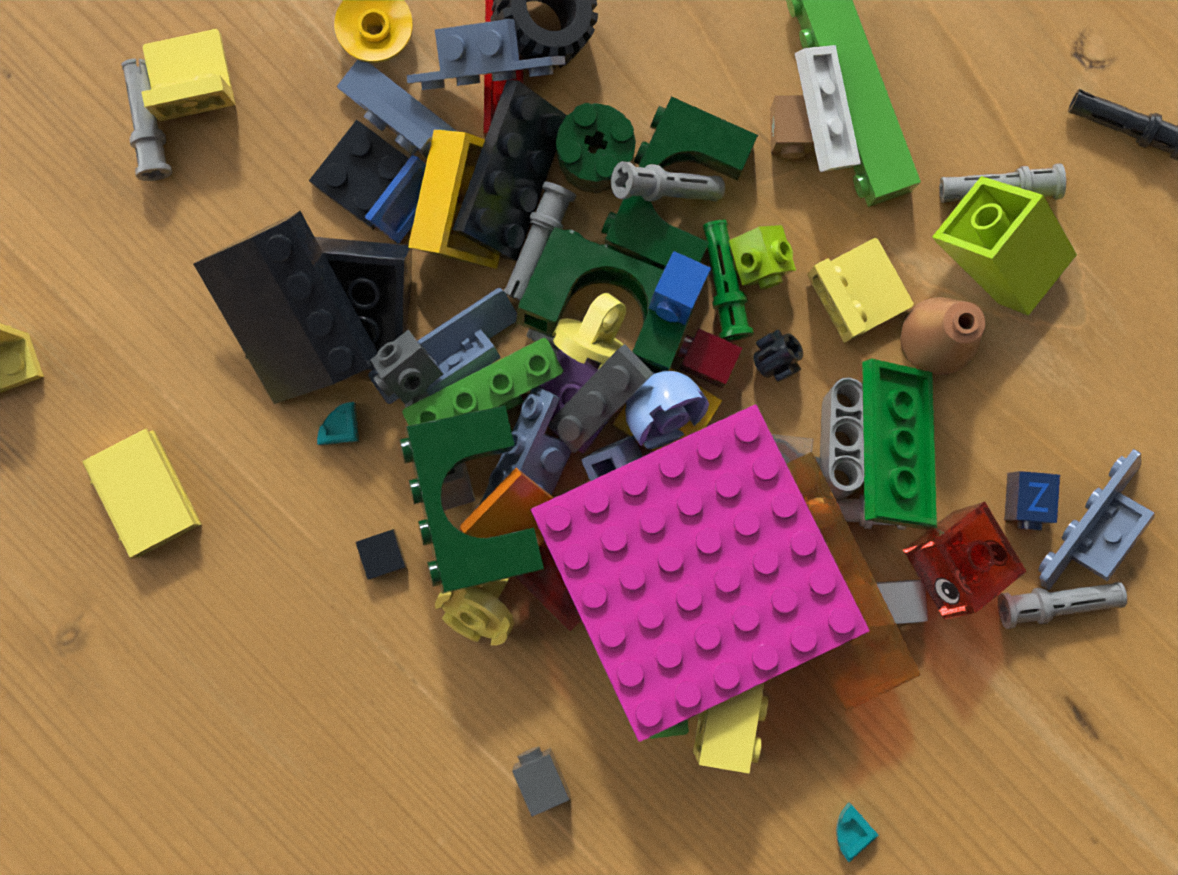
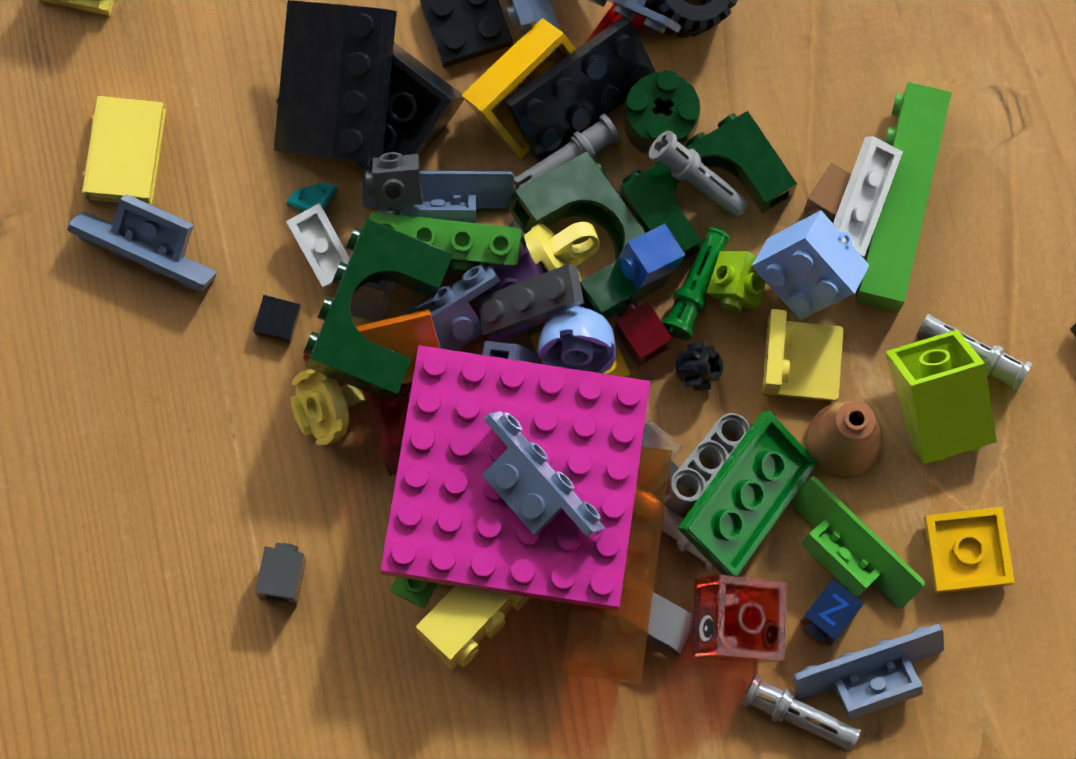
camera: 30 degrees right, 10 degrees down
(216, 562) = (148, 238): none -> sand blue bracket
(374, 465) = (318, 243): none -> white plate
(398, 204) = (473, 59): blue tile -> none
(724, 575) = (531, 484): none -> sand blue bracket
(823, 202) = (810, 265): none -> light blue brick
(1011, 430) = (851, 548): none -> bright green bracket
(1110, 364) = (968, 550): none -> yellow plate

